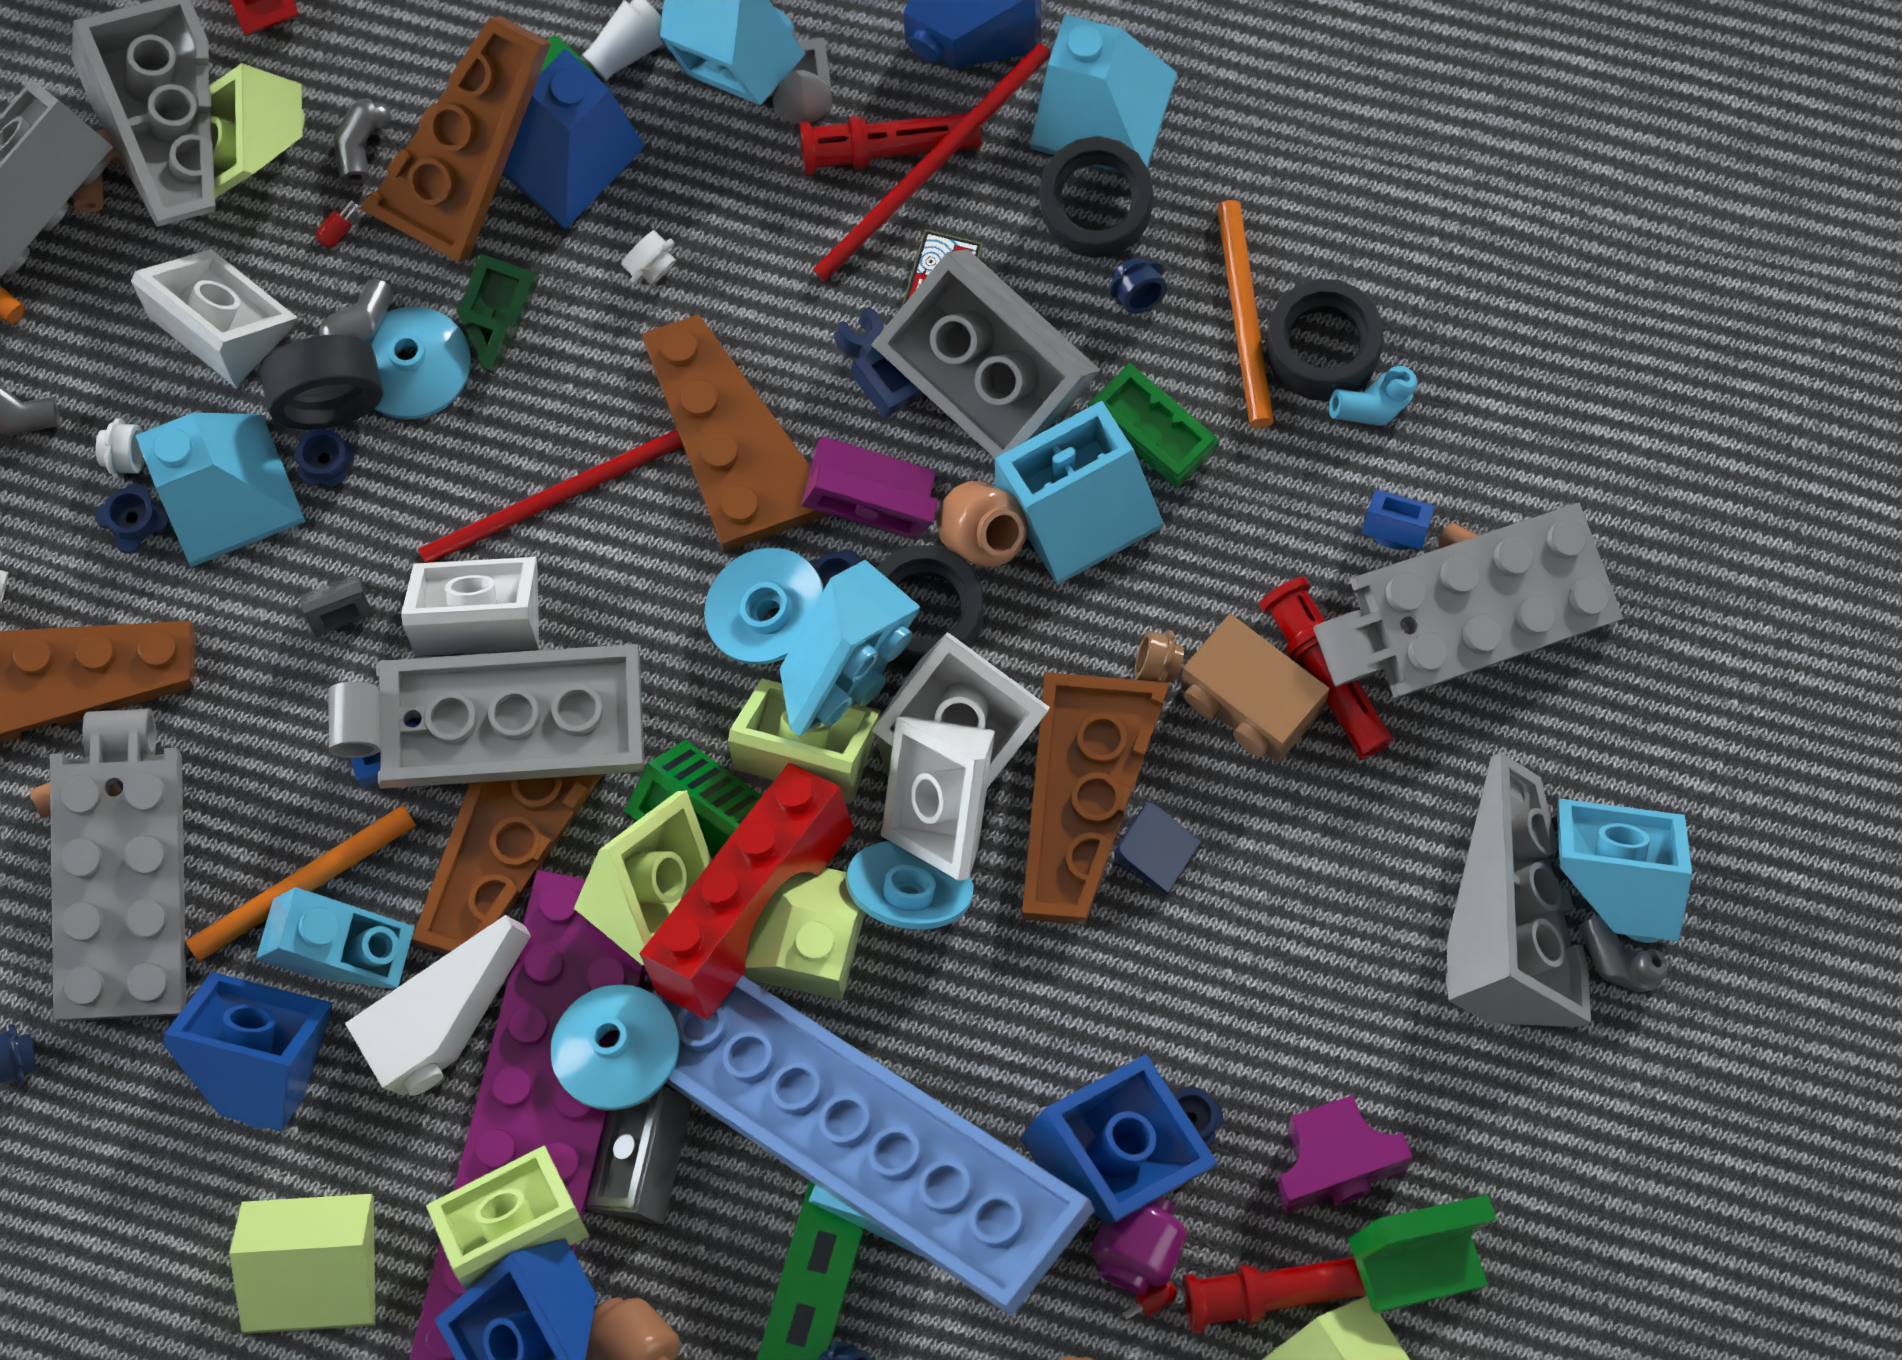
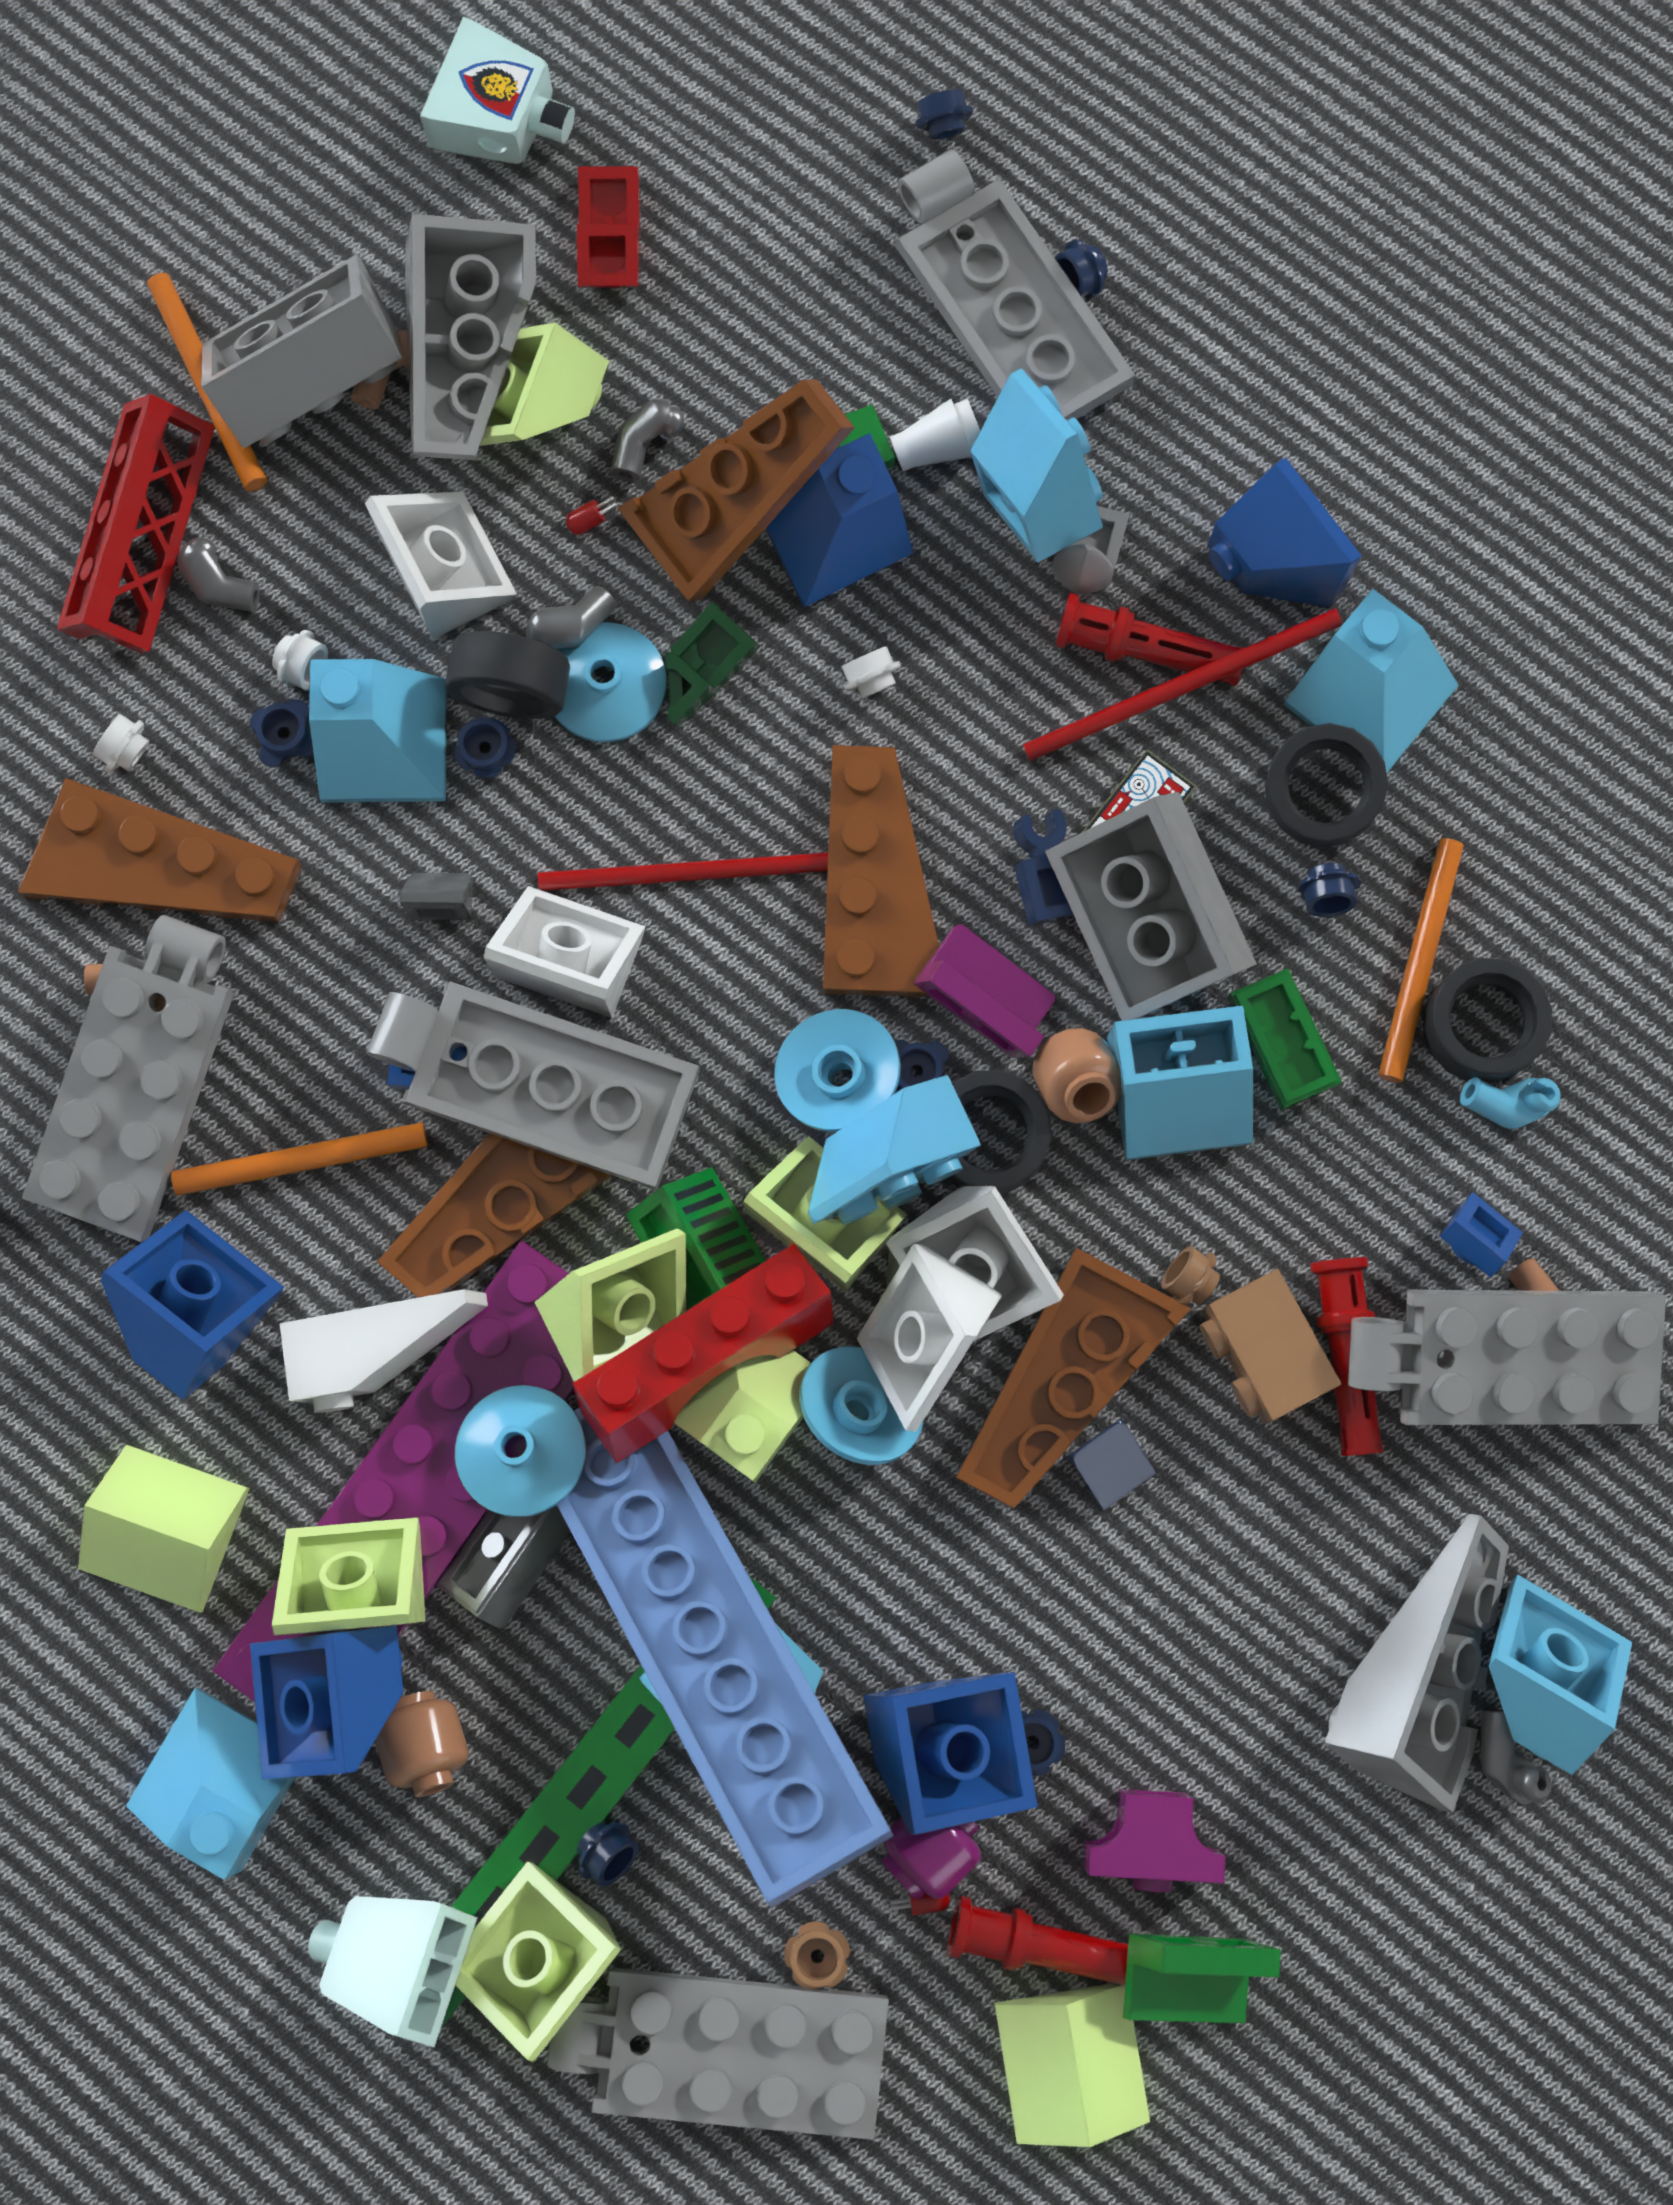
camera: 20 degrees right, 10 degrees up
(334, 940) = (305, 1235): medium azure slope -> none

